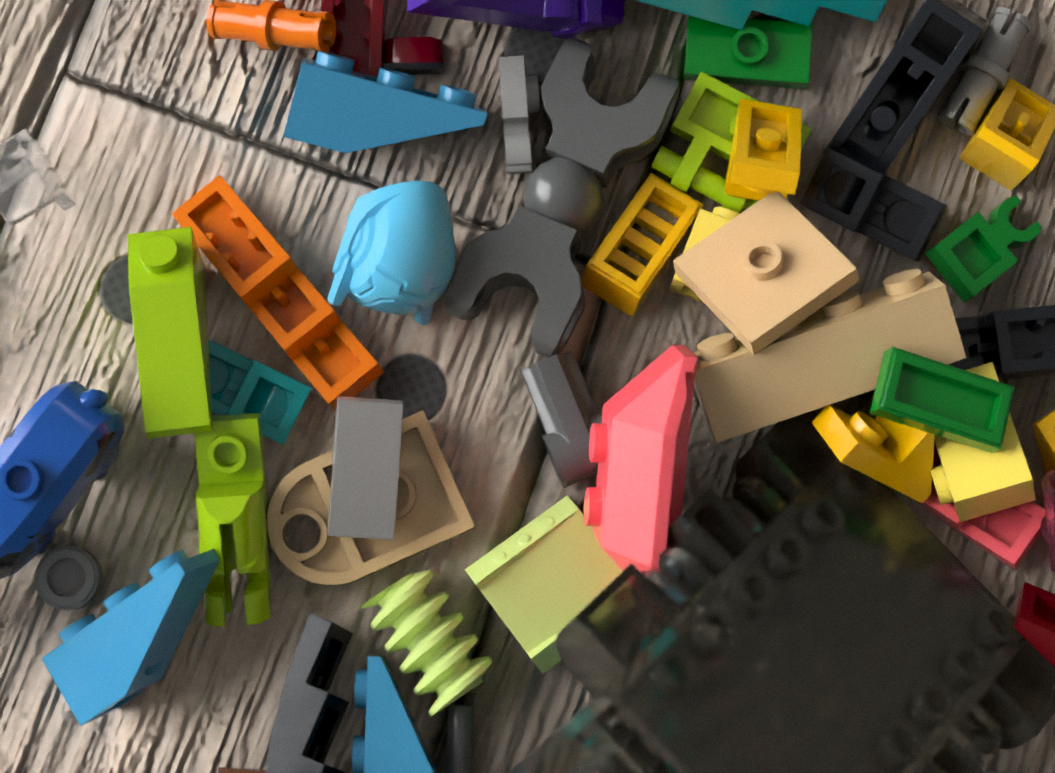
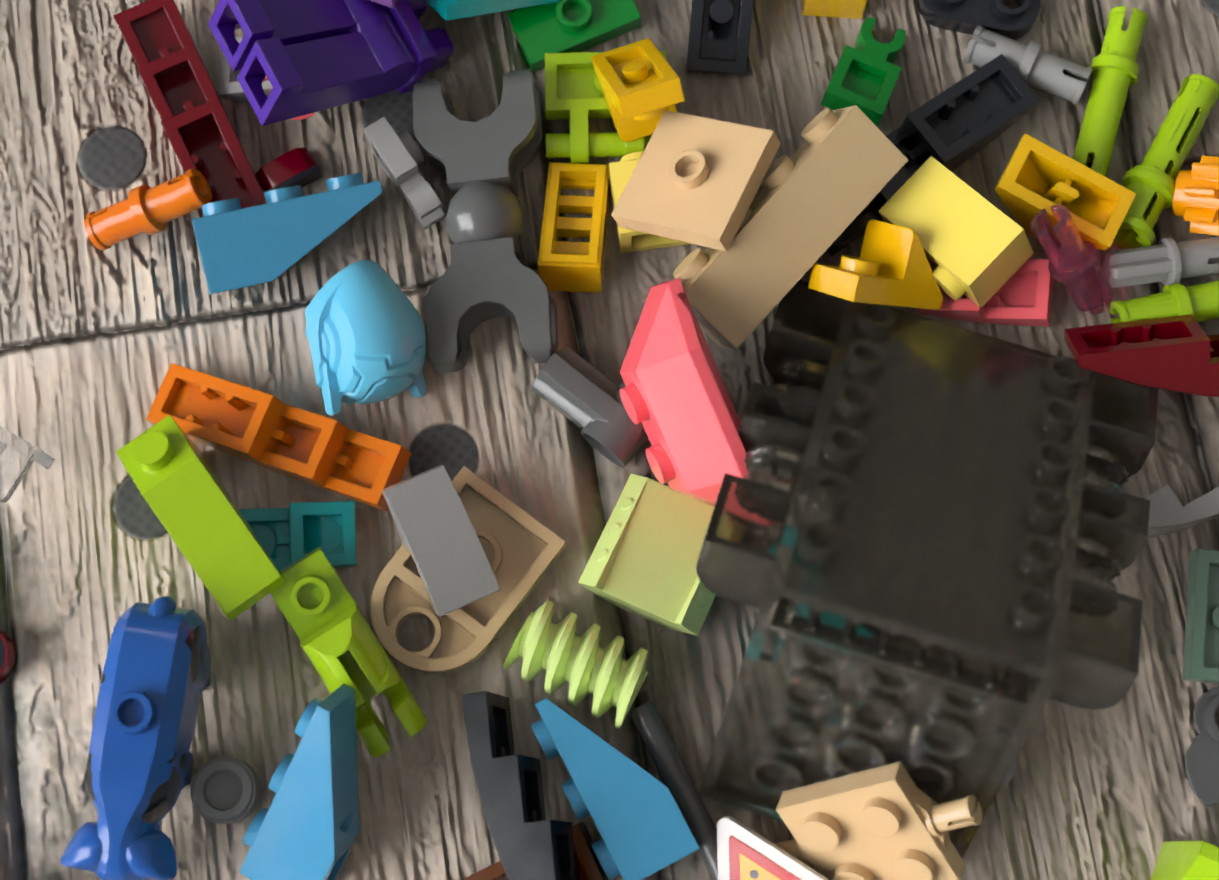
camera: 25 degrees left, 5 degrees down
(873, 204) = (754, 86): black slope -> none
(942, 400) = (908, 204): green tile -> none

